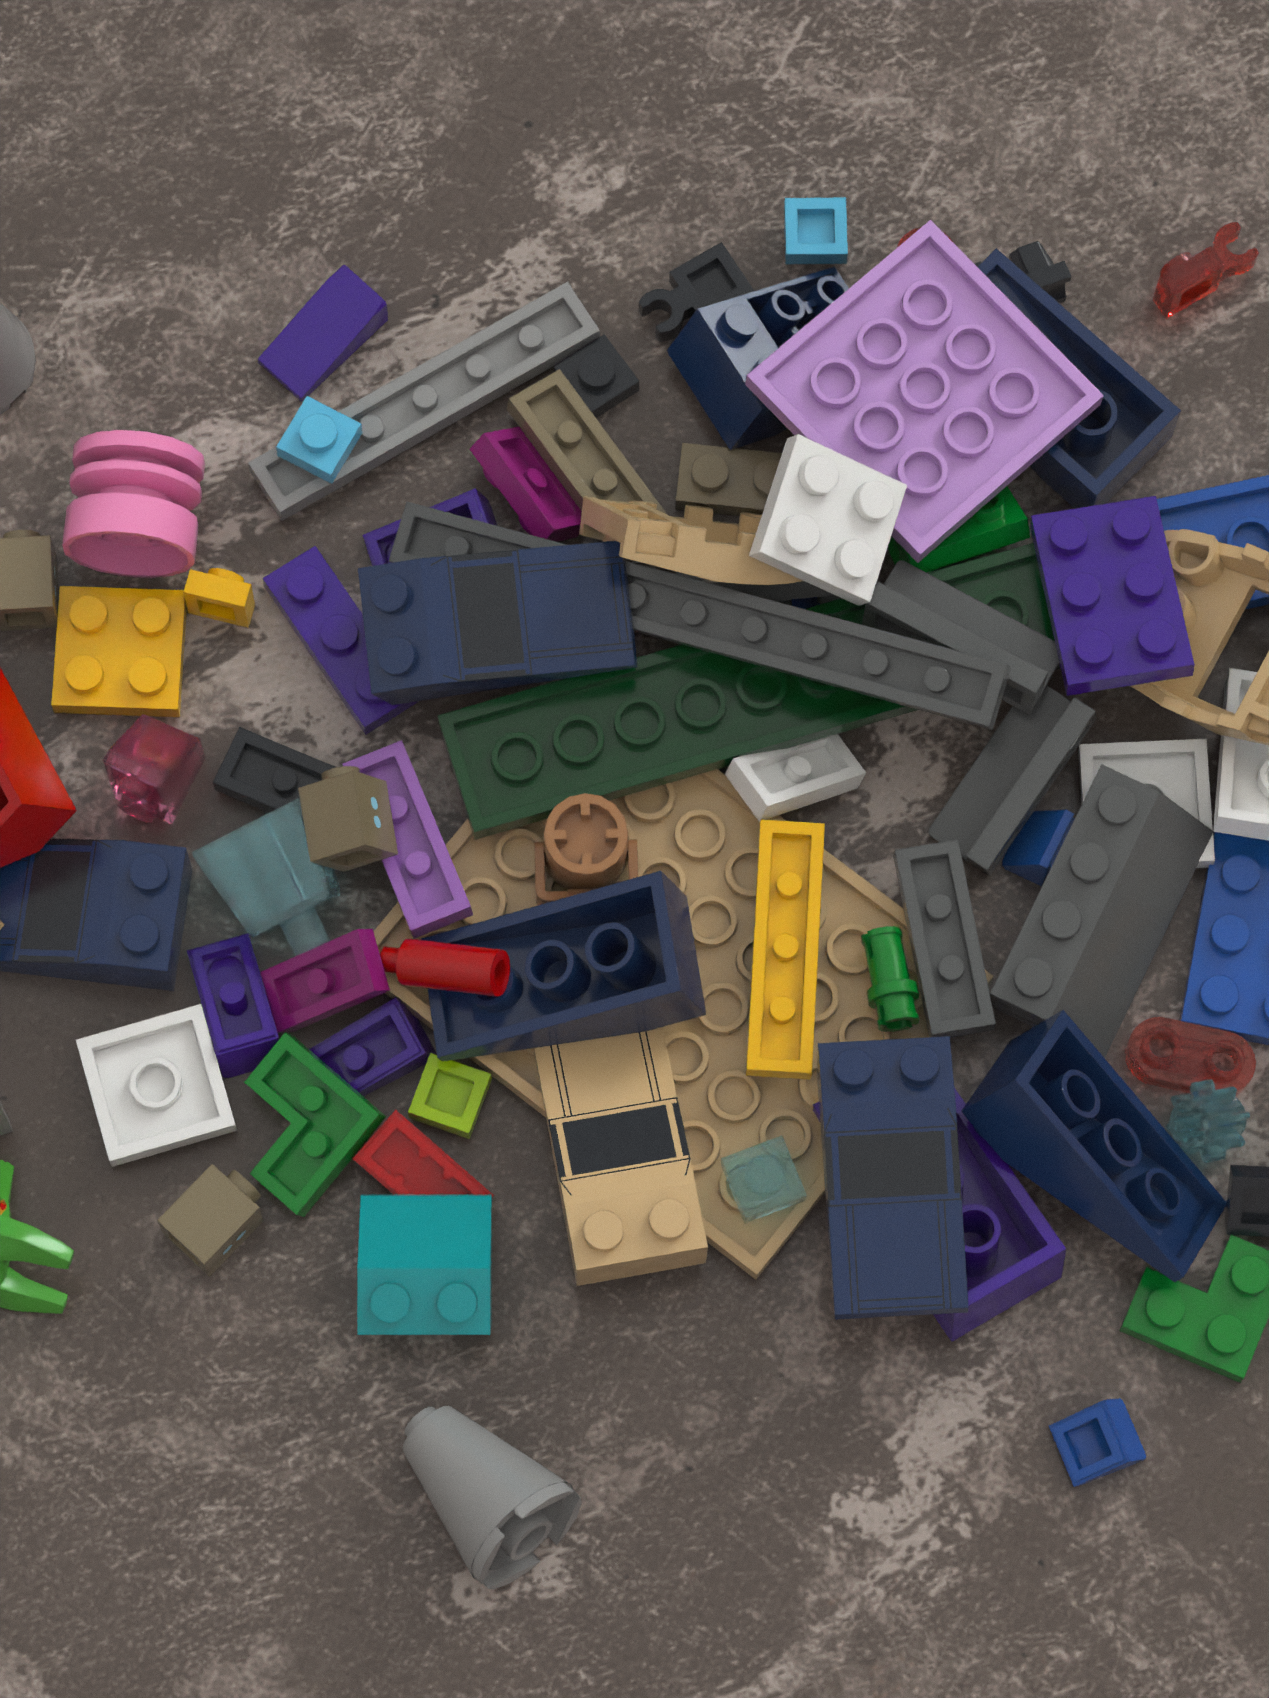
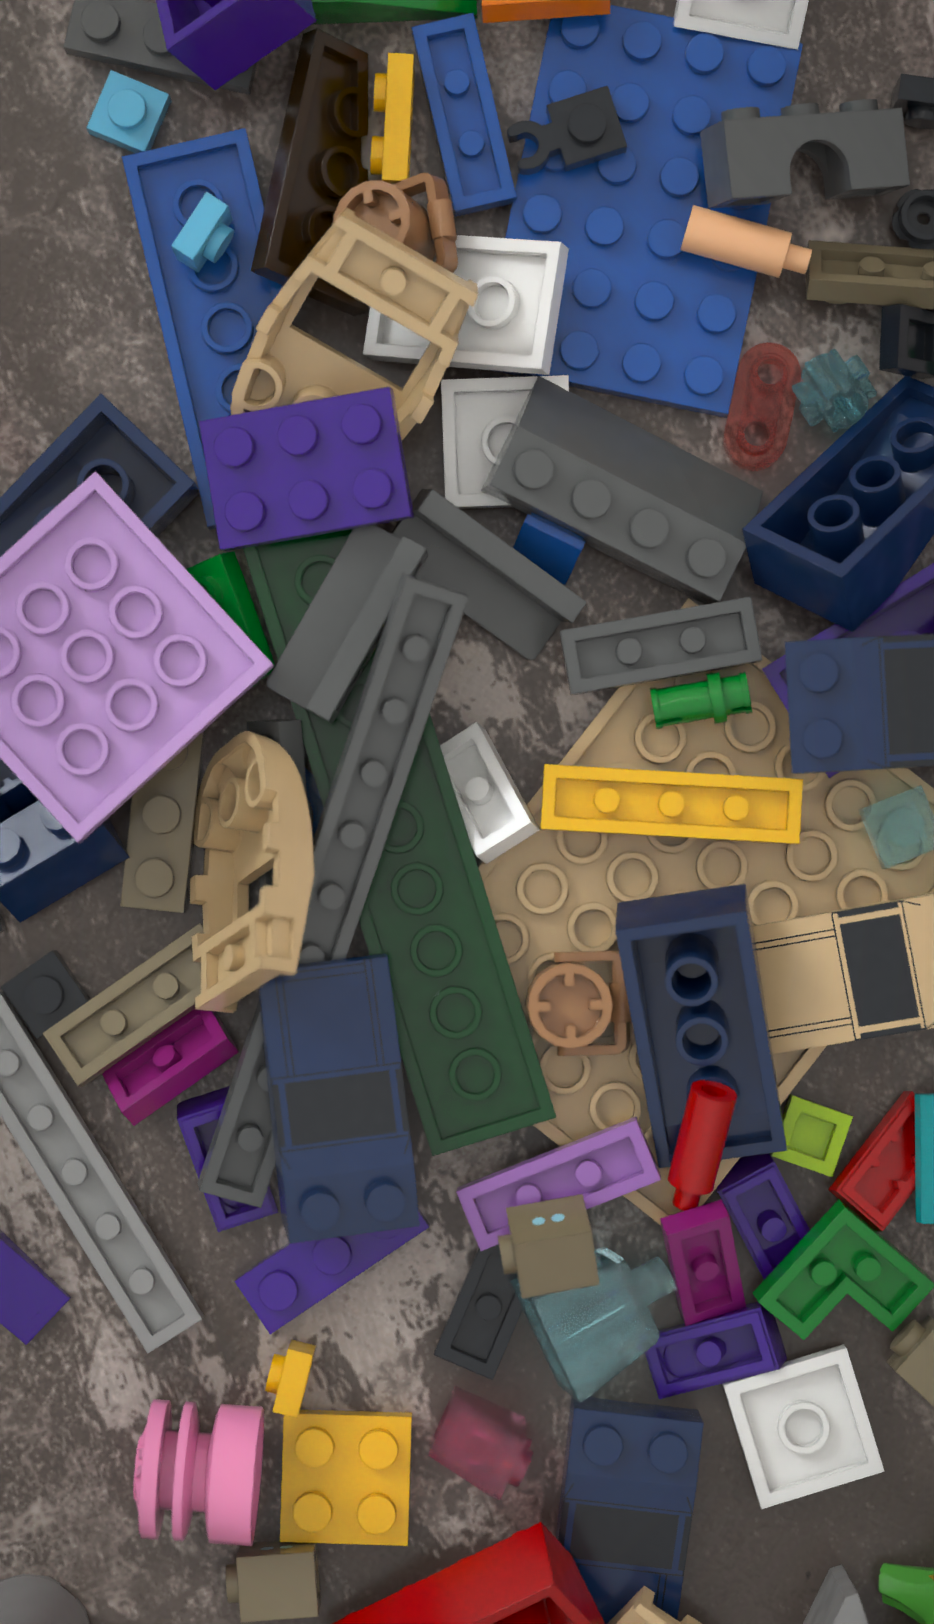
camera: 85 degrees left, 15 degrees up
(319, 439) = (126, 1281): medium azure plate -> none
(828, 520) = (247, 758): white plate -> none

